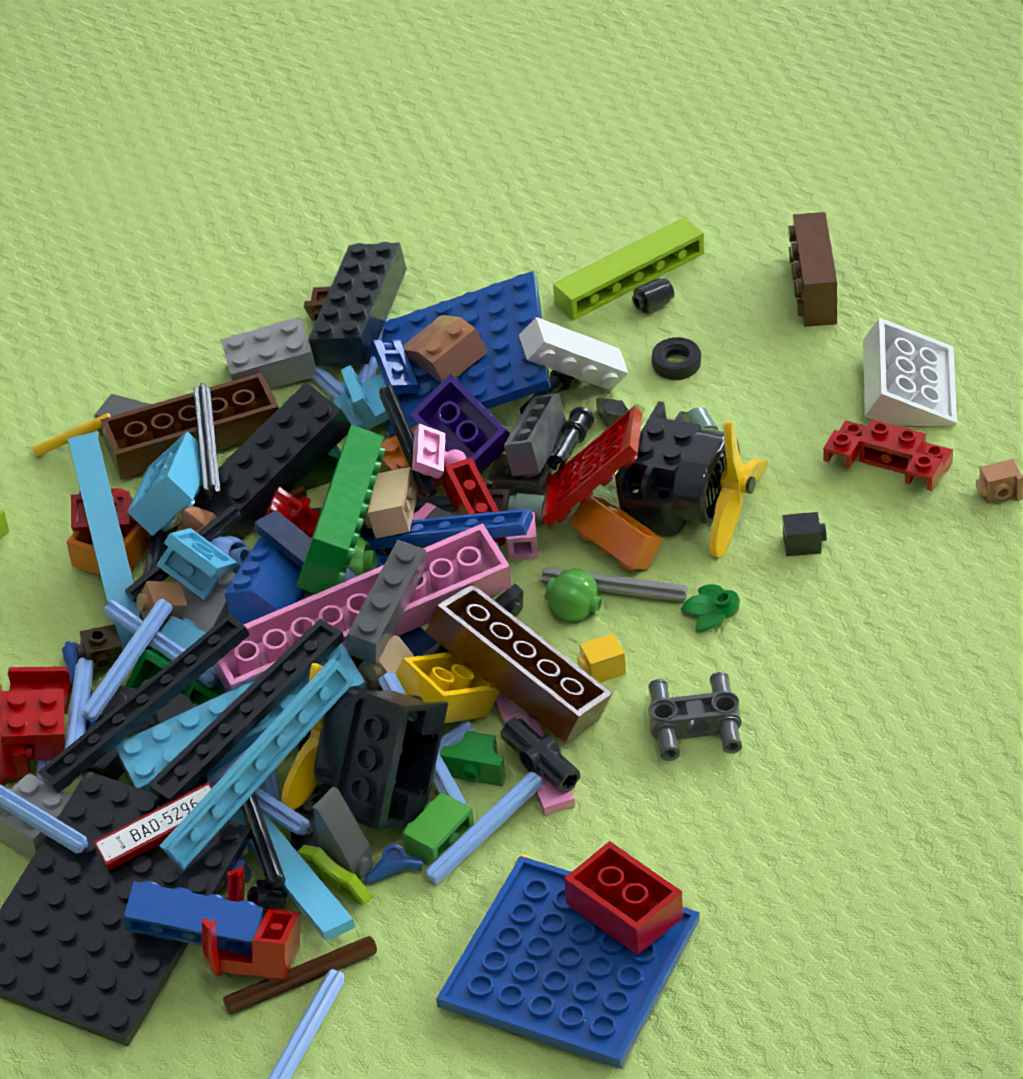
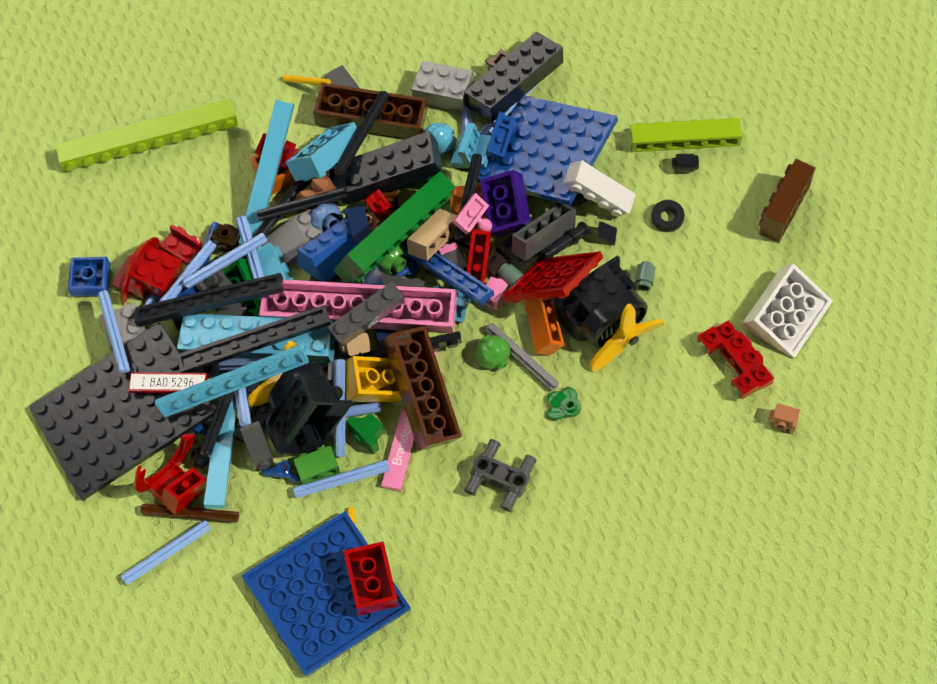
camera: 30 degrees right, 20 degrees up
(156, 590) = (271, 229): medium nougat brick -> none
(179, 915) = (147, 451): blue brick -> none
(195, 562) = (300, 216): medium azure bracket -> none
(334, 875) = (245, 462): lime tile -> none
(445, 347) = (532, 140): nougat slope -> none
(540, 754) = (398, 452): black piece -> none
(602, 658) = (477, 405): yellow brick -> none
(803, 534) = (647, 386): black brick -> none

